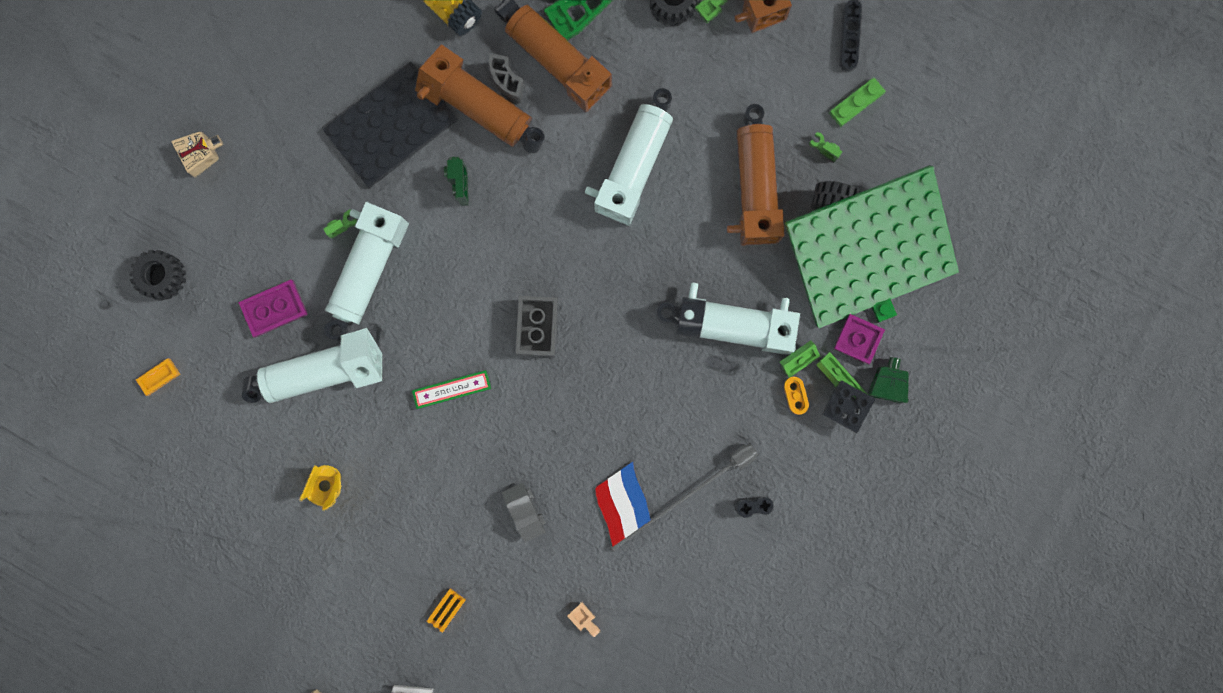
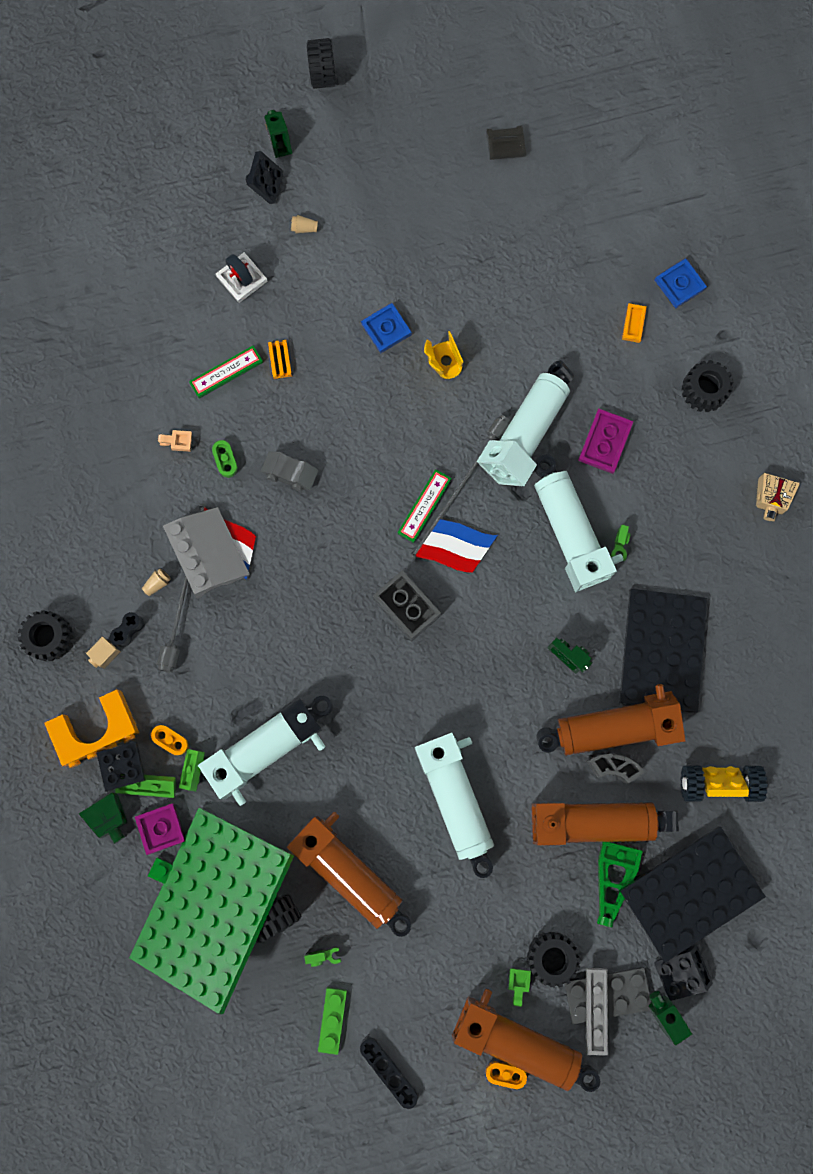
camera: 135 degrees right, 5 degrees down
(91, 372) = (680, 283): none -> blue plate
(102, 613) = (506, 147): none -> clear smoke plate
(343, 555) = (386, 328): none -> blue plate
(457, 341) = (453, 542): none -> flag
(496, 640) = (226, 372): none -> tile
(562, 569) = (225, 459): none -> bright green plate
(642, 509) = (206, 551): none -> light grey piece
(699, 522) = (156, 582): none -> tan cone
(787, 506) = (102, 653): none -> tan brick
(832, 567) = (30, 633): none -> black tyre
(871, 454) = (120, 728): none -> light orange arch

